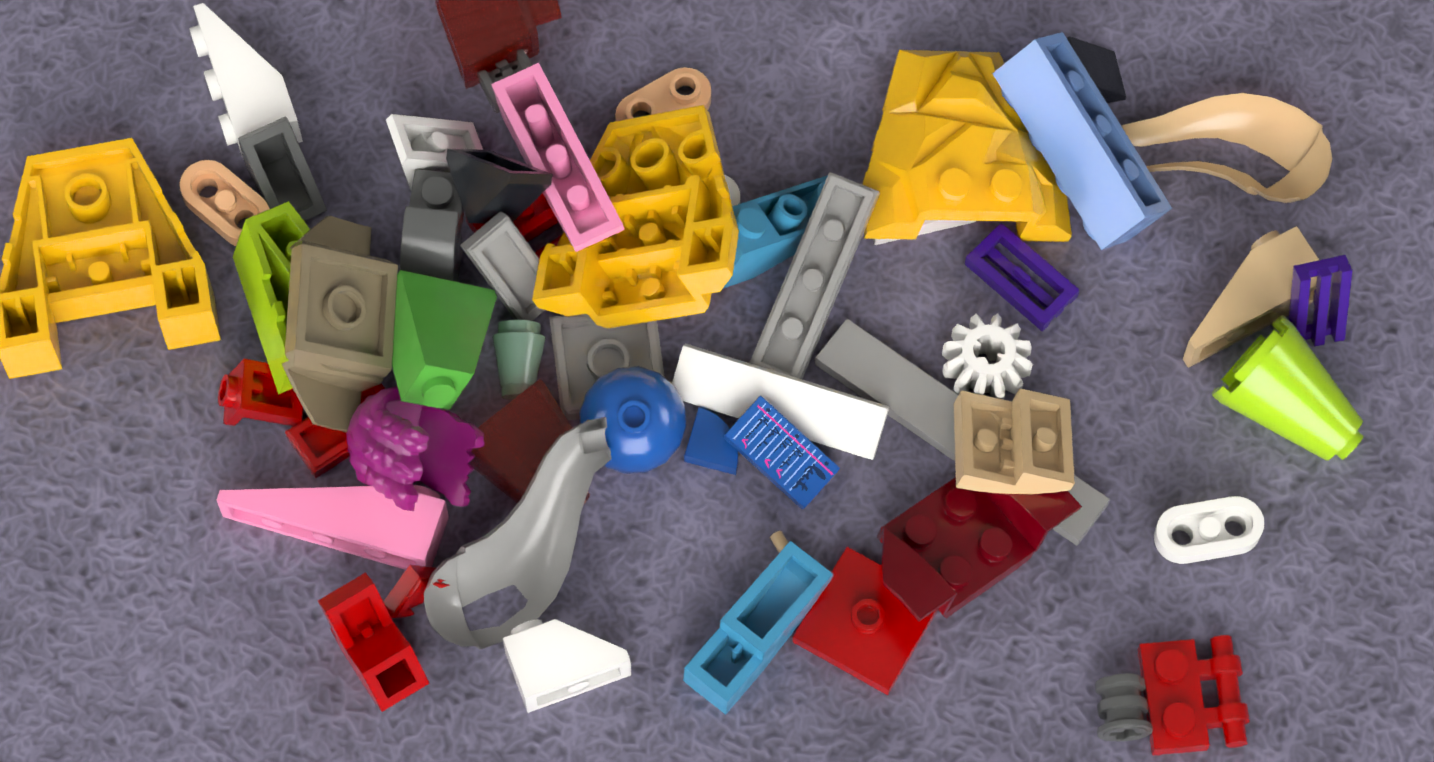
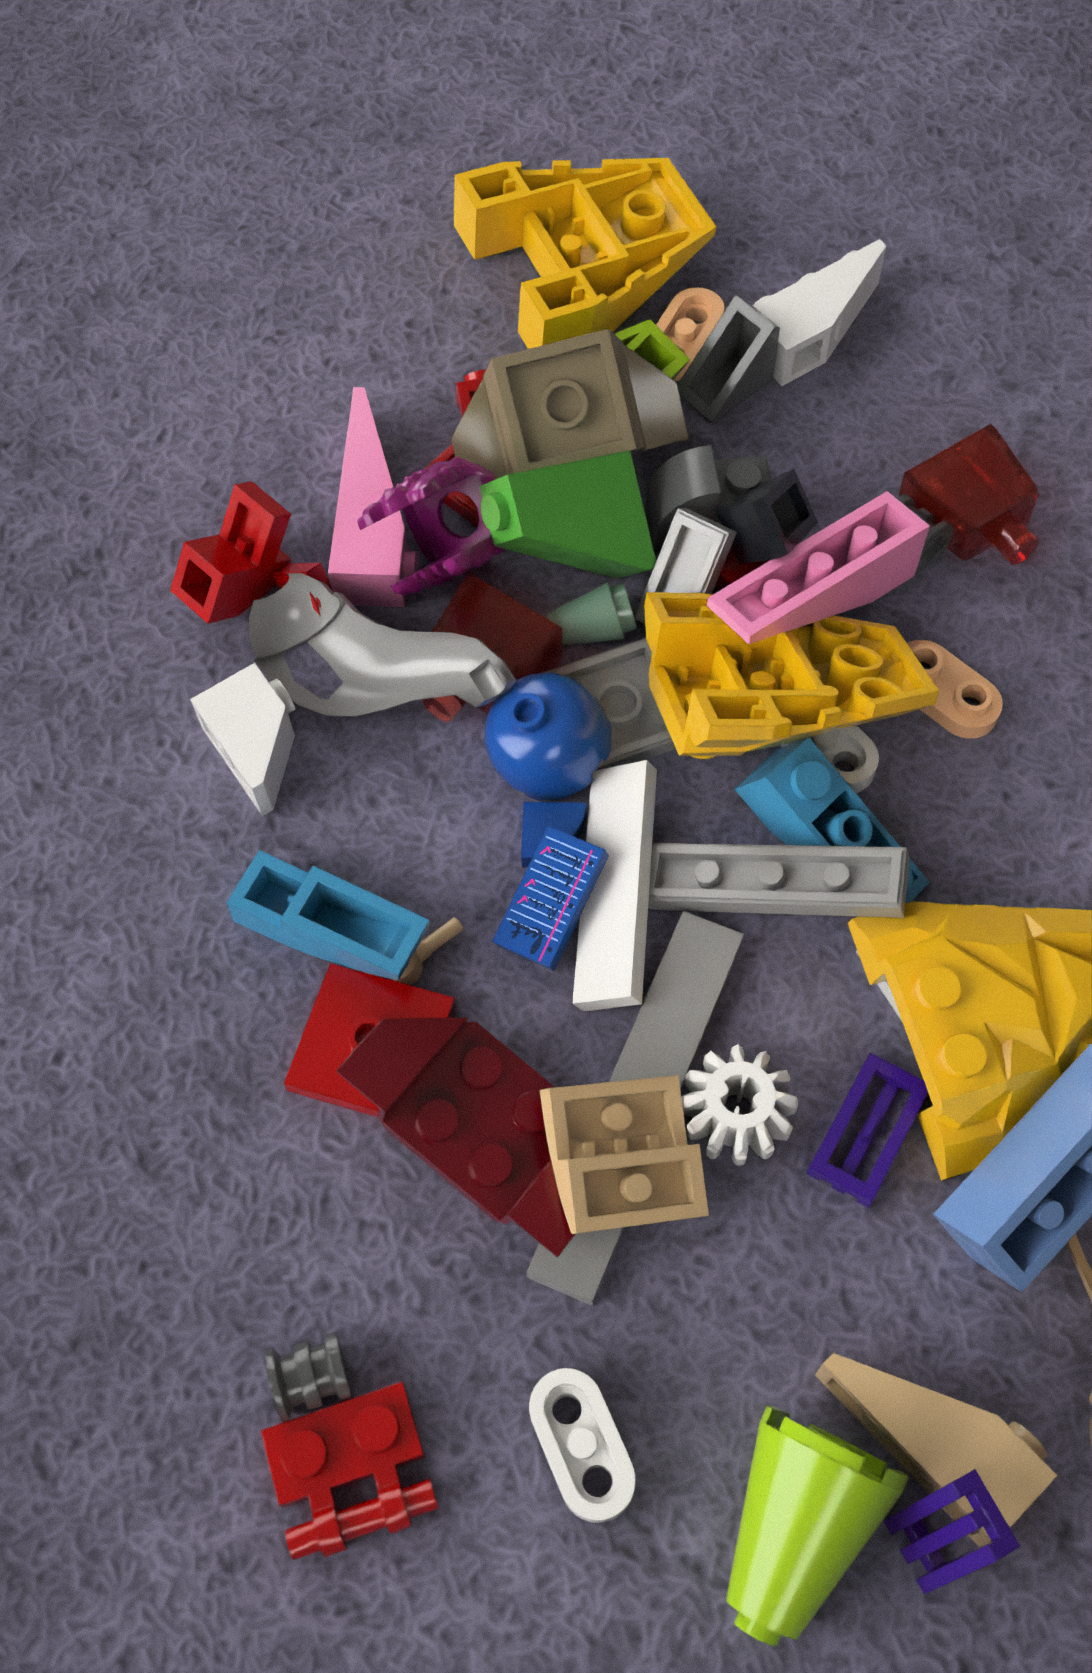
camera: 80 degrees right, 5 degrees down
(425, 141) = (803, 447): white slope -> none

